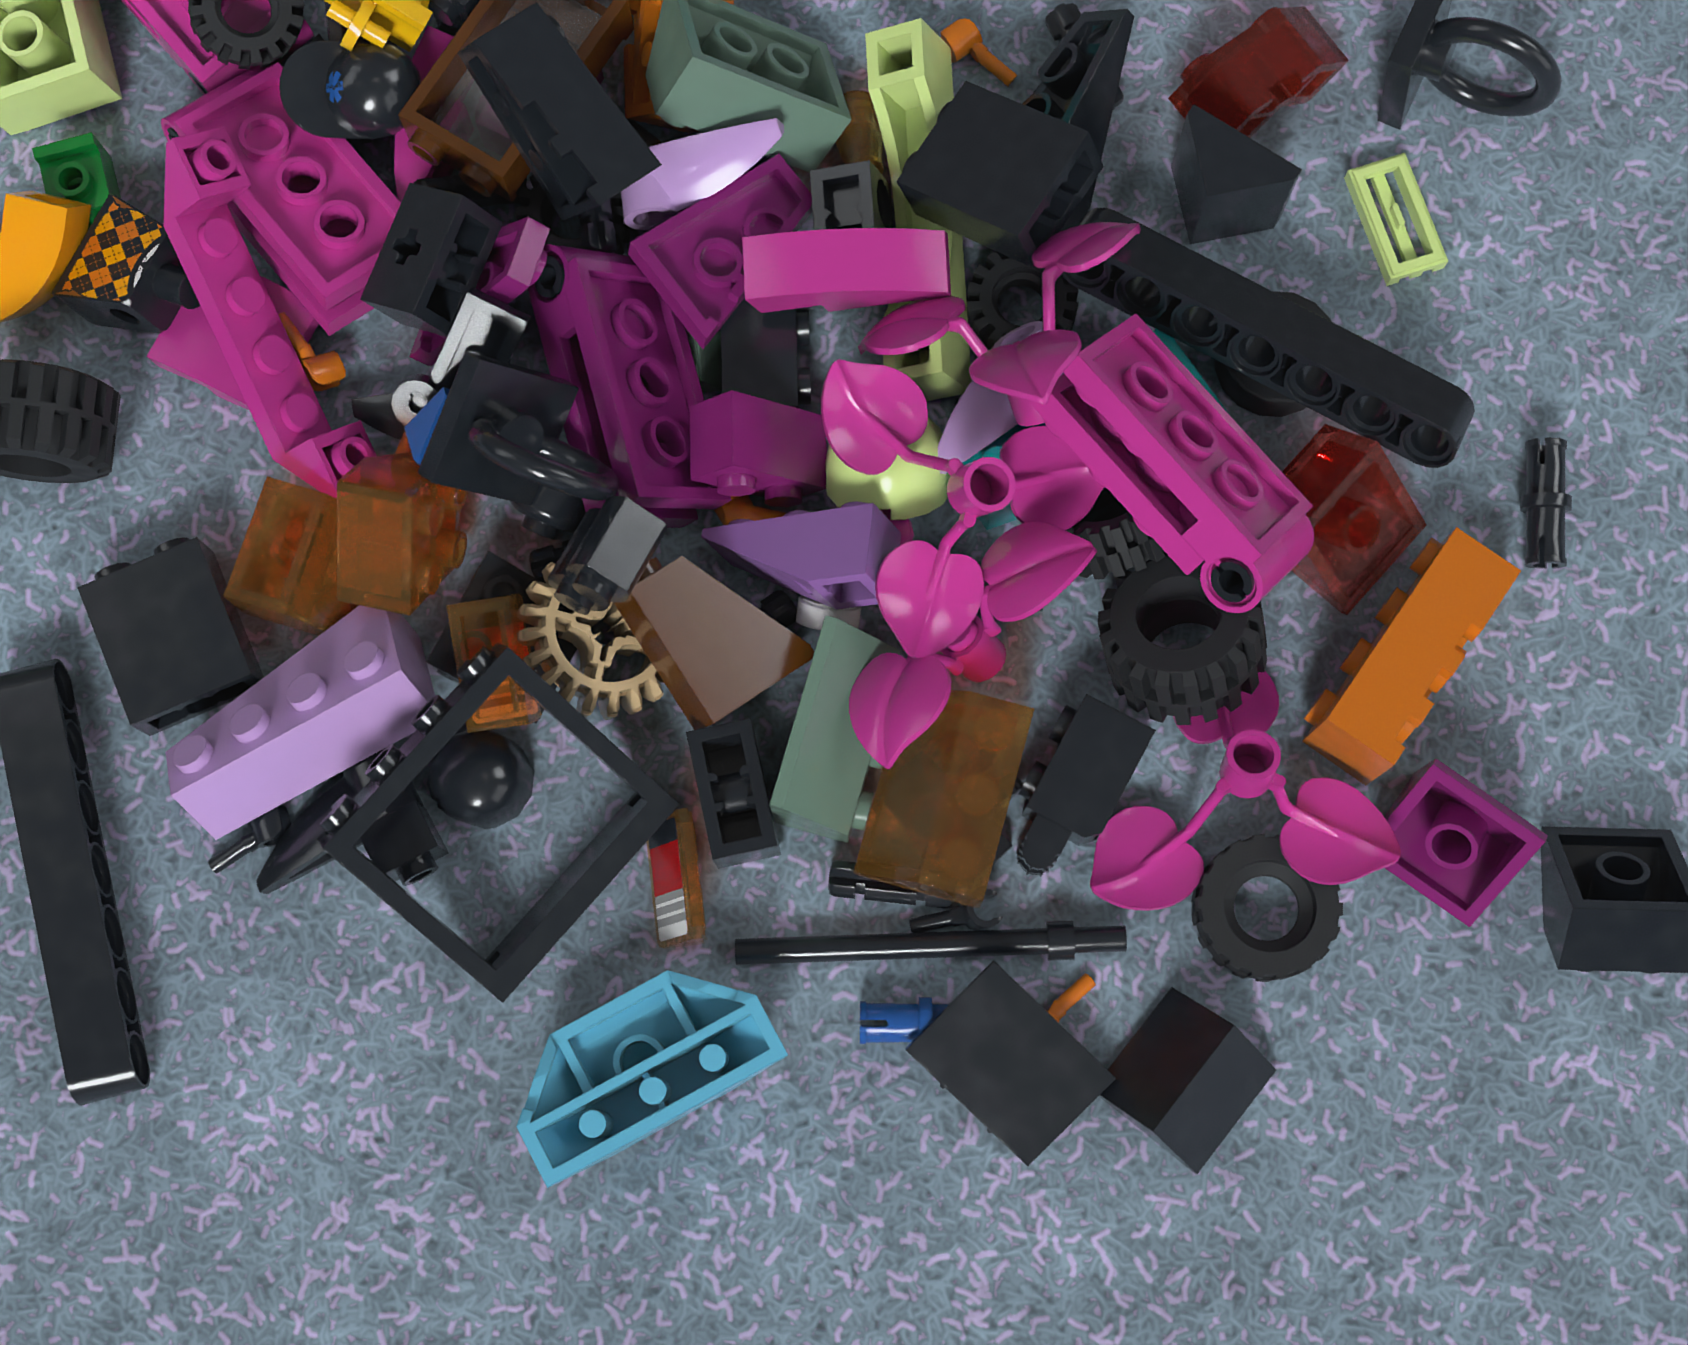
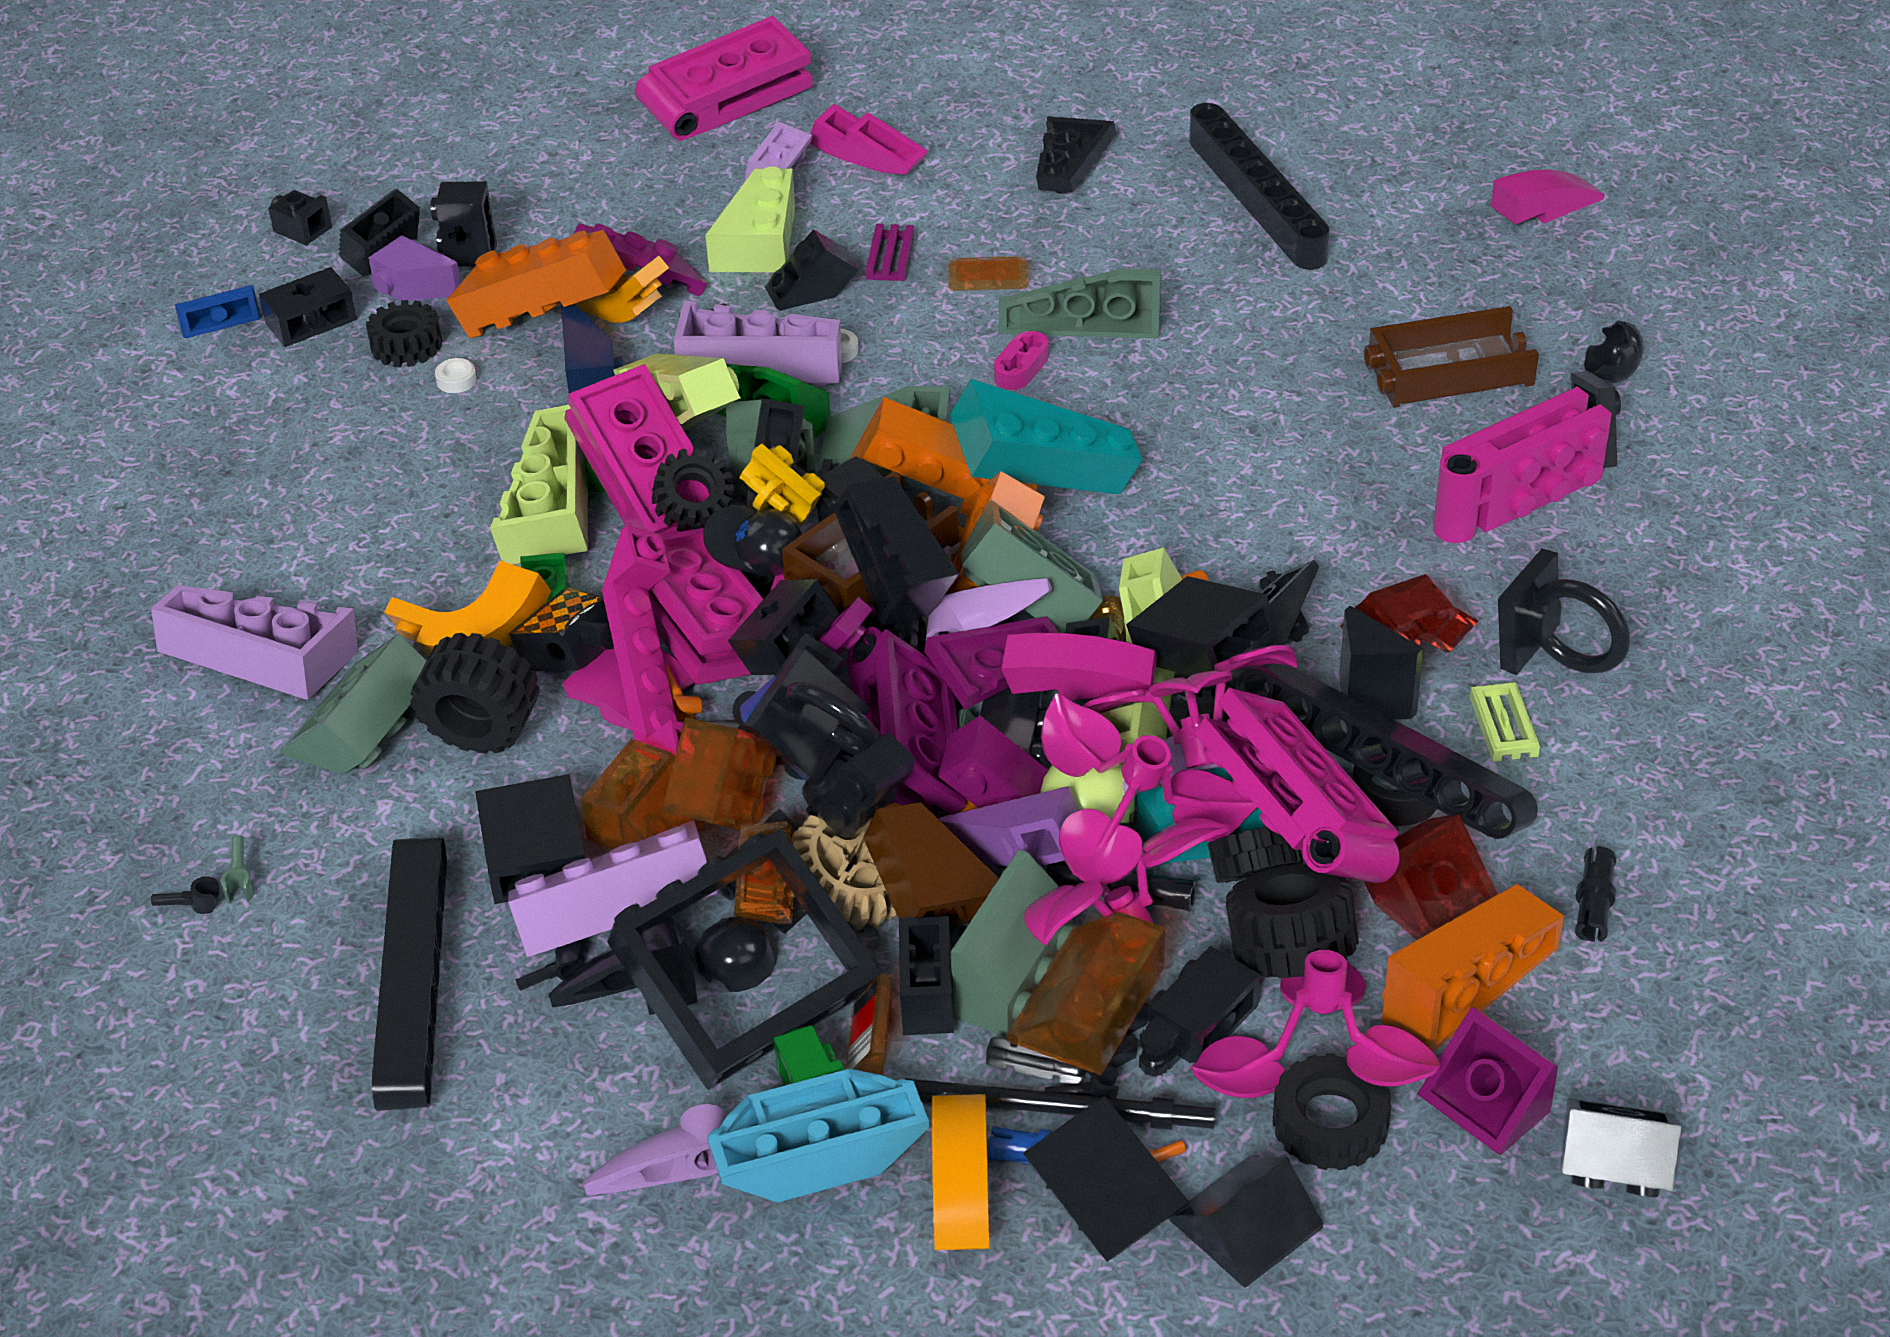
camera: 10 degrees right, 35 degrees down
(461, 1111) = (663, 1158): none -> lavender piece
(611, 952) = (803, 1056): none -> green brick
(833, 1088) = (960, 1172): none -> light orange arch

